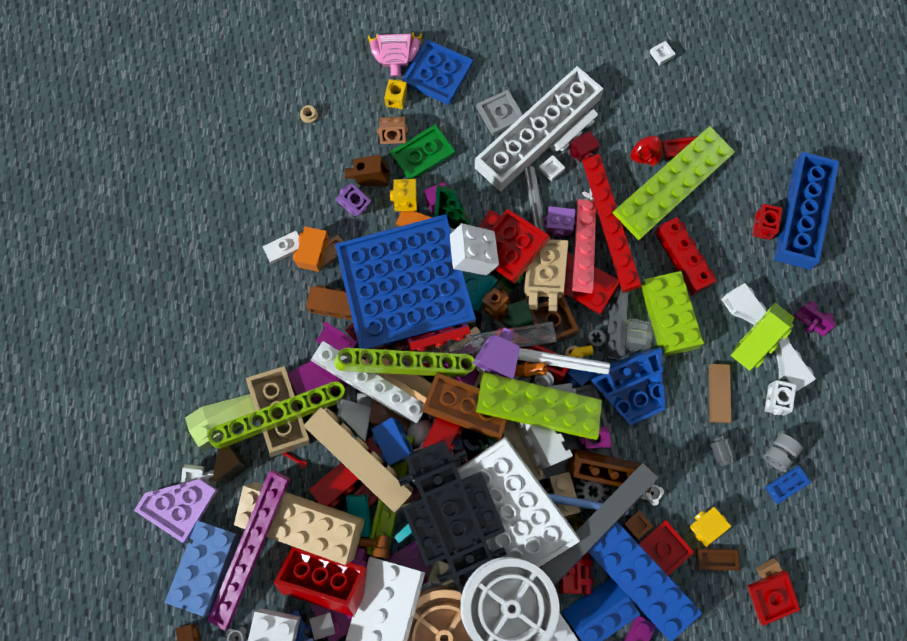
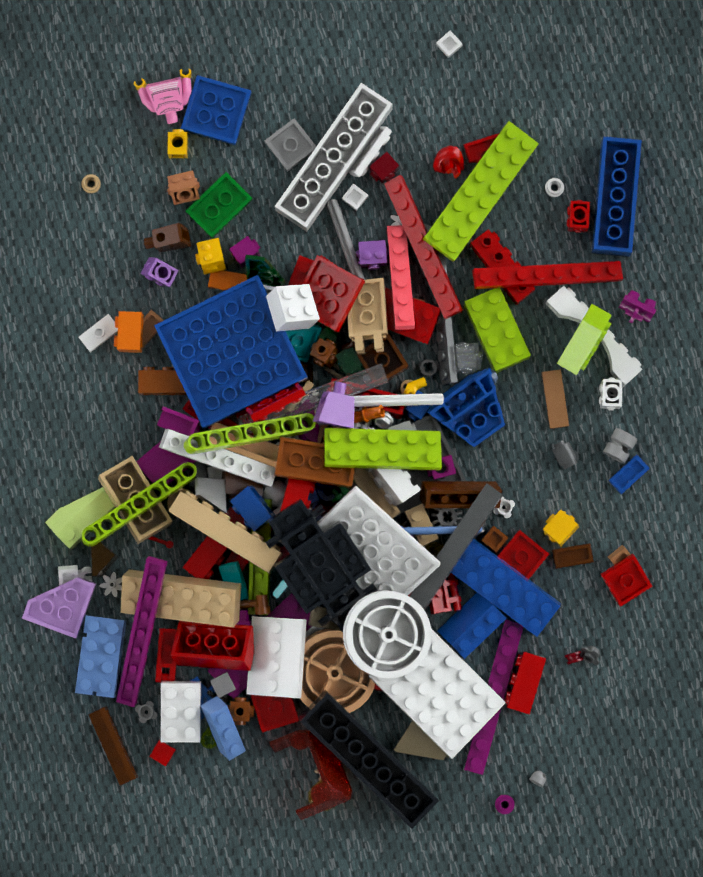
camera: 10 degrees left, 10 degrees up
(233, 489) = (109, 588): none -> white plant
(267, 584) = (164, 658): none -> red plate
(730, 269) = (547, 274): none -> red plate
(748, 190) = (554, 181): none -> white plate

